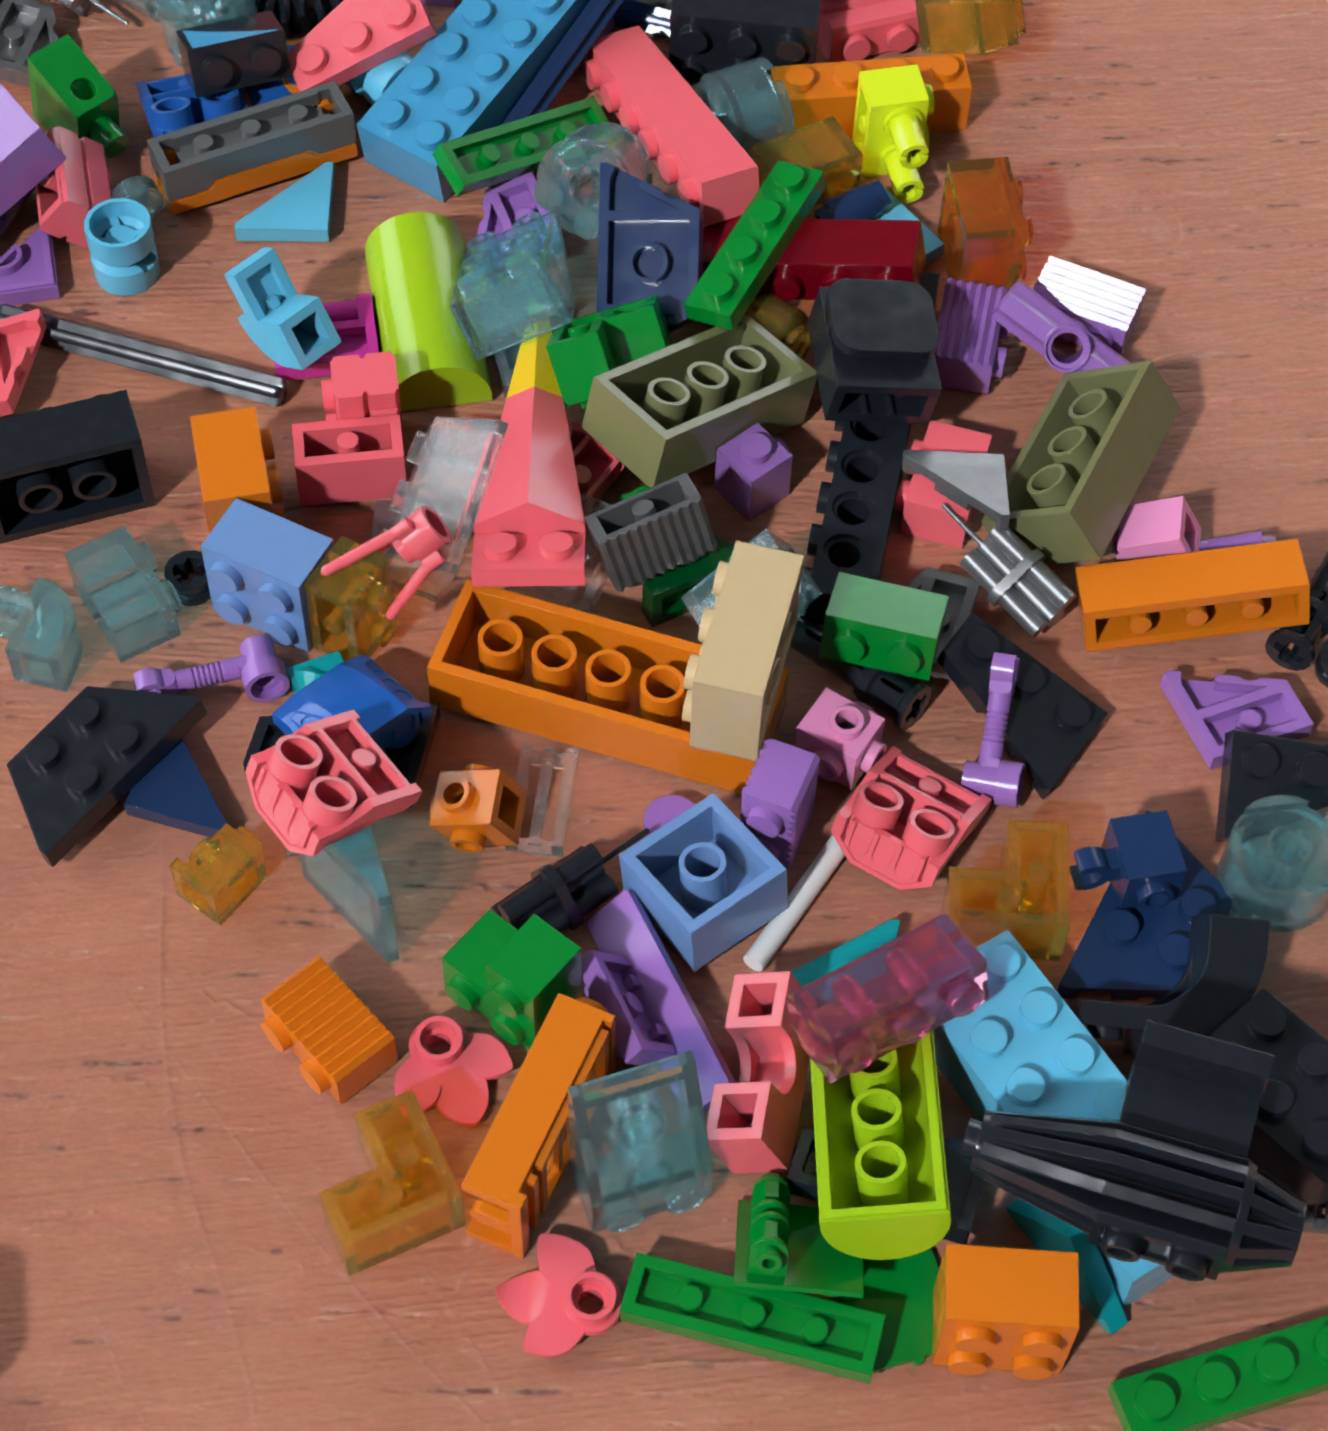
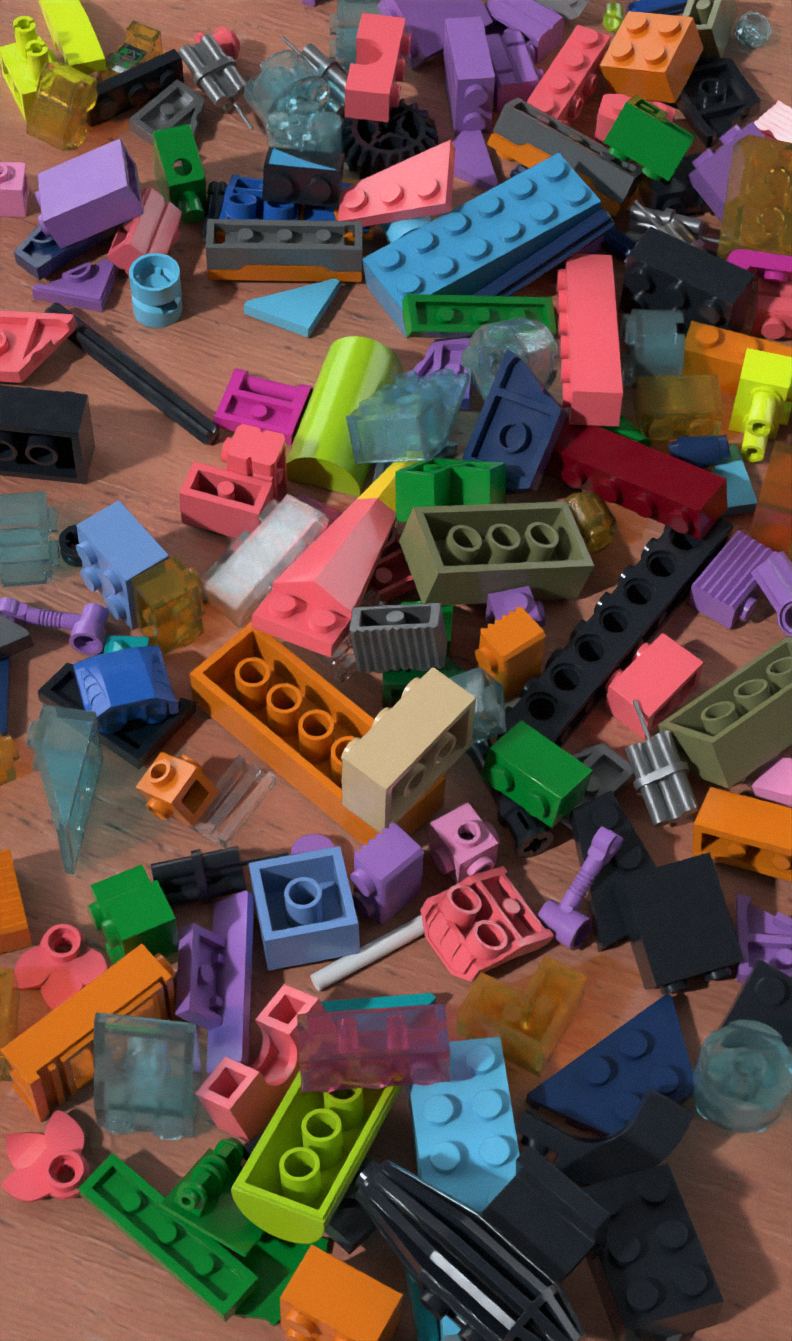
camera: 25 degrees right, 0 degrees up
(137, 129) = (214, 203): none -> black axle
(141, 190) = (190, 259): clear light blue tile -> none
(233, 463) = (141, 478): orange brick -> none
(277, 319) = (228, 376): medium azure brick -> none
(326, 784) = (61, 727): coral slope -> none
(414, 538) = (220, 576): coral plant -> none
(755, 245) = (595, 452): green plate -> none
(779, 497) = (512, 651): none -> orange brick
(875, 351) = (640, 565): black brick -> none
(965, 479) = (659, 688): flat silver tile -> none
(1123, 728) = (678, 923): none -> black brick
(1139, 860) = (629, 1026): dark blue brick -> none

